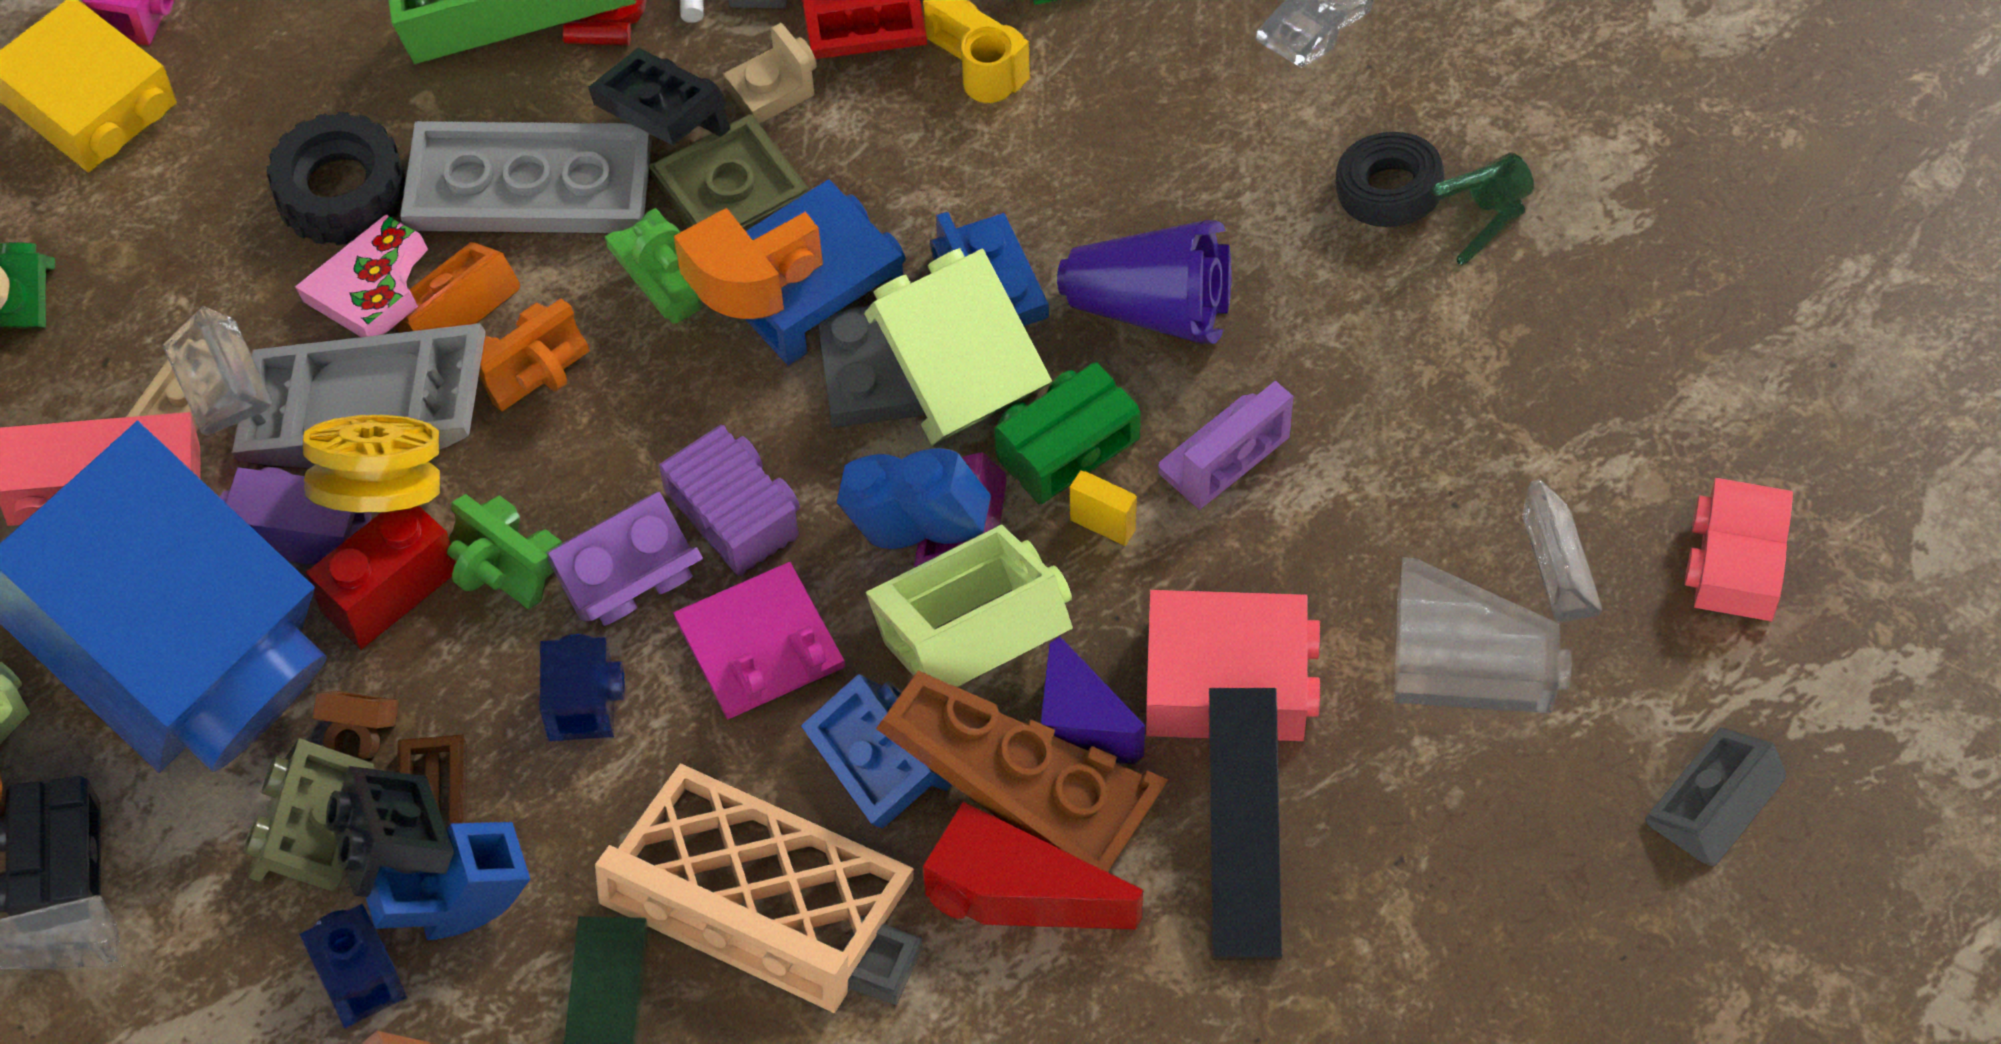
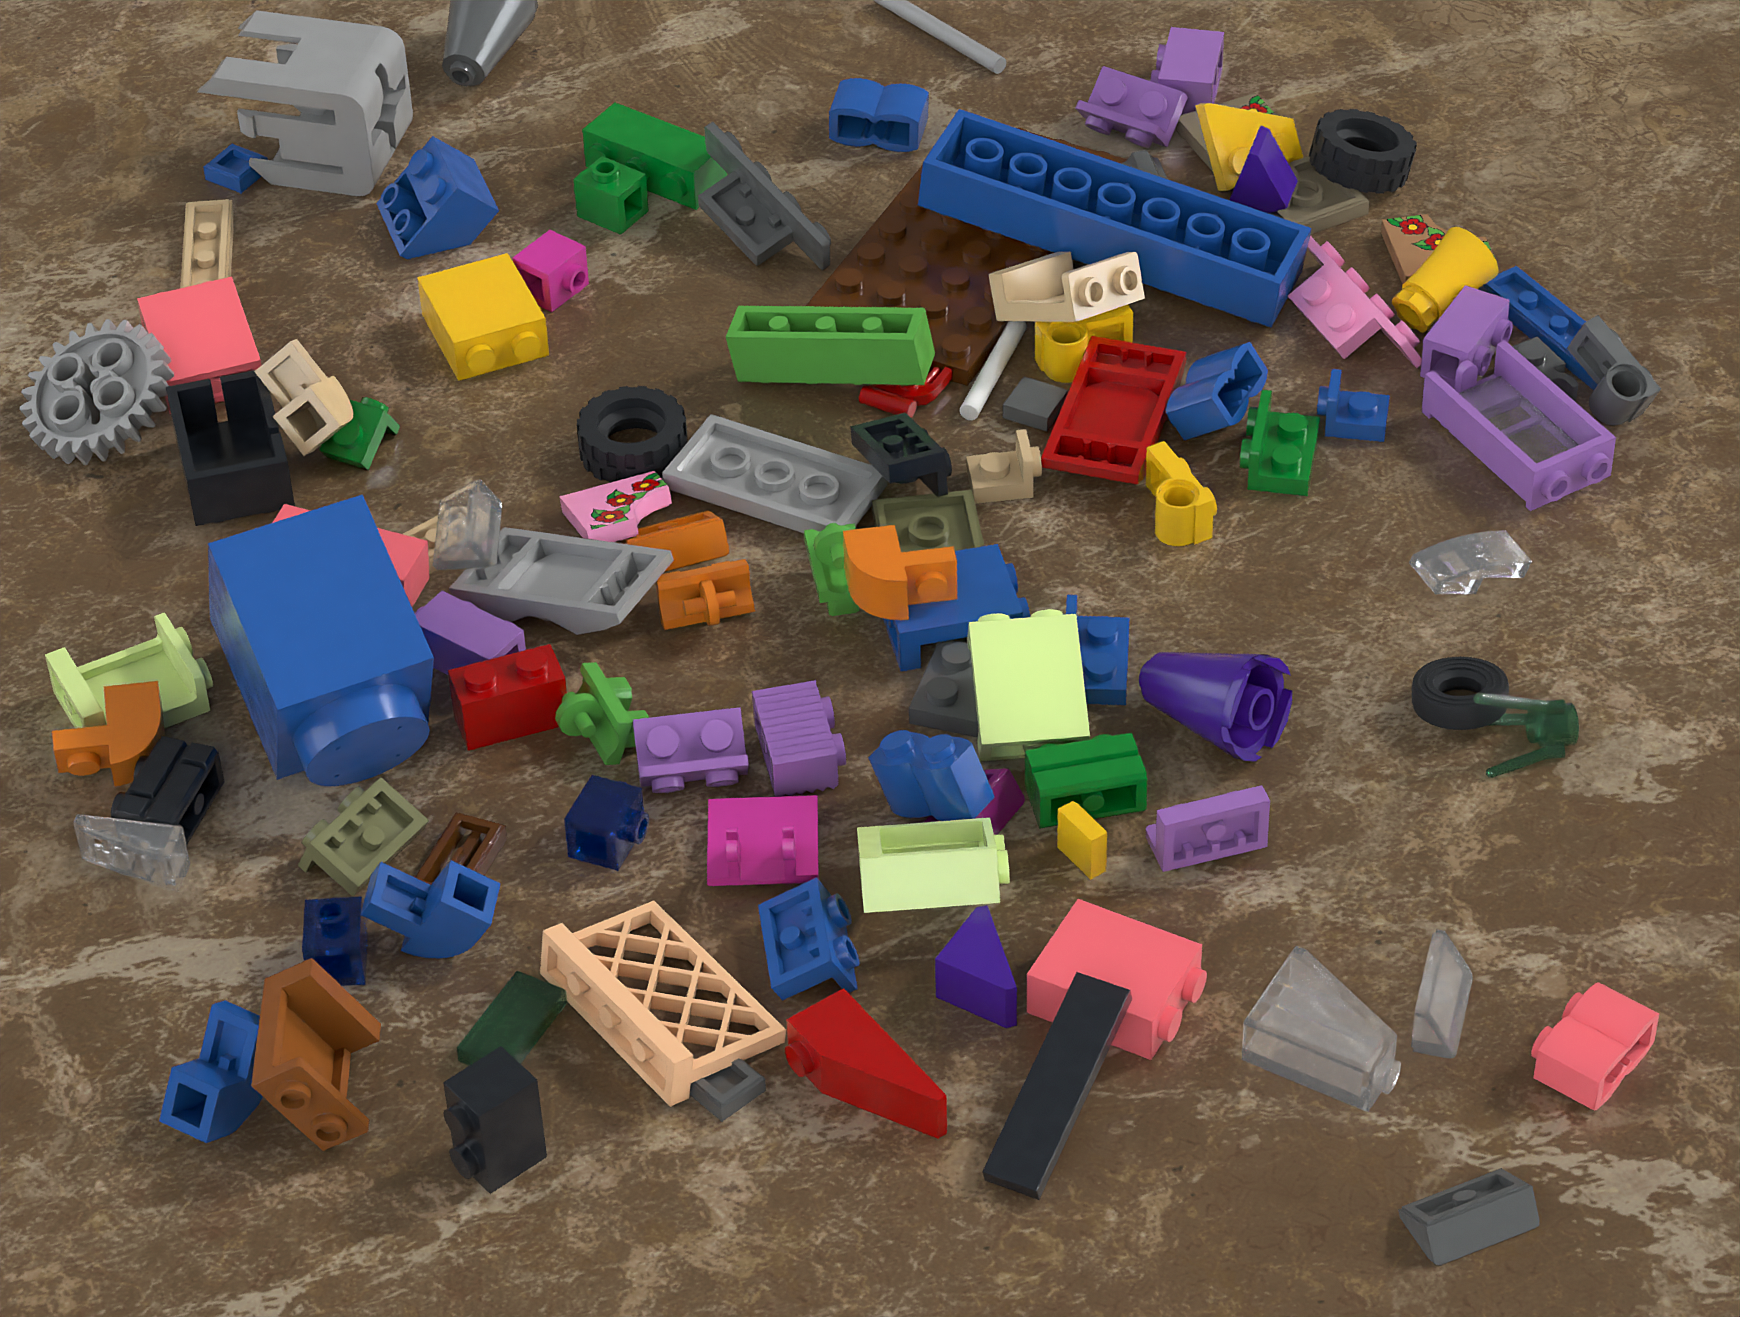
camera: 25 degrees right, 15 degrees down
(355, 713) = (434, 783): dark orange tile -> none
(371, 463) = (533, 610): yellow wheel -> none
(386, 823) = (409, 846): black bracket -> none
(1022, 770) = (904, 986): dark orange wing -> none

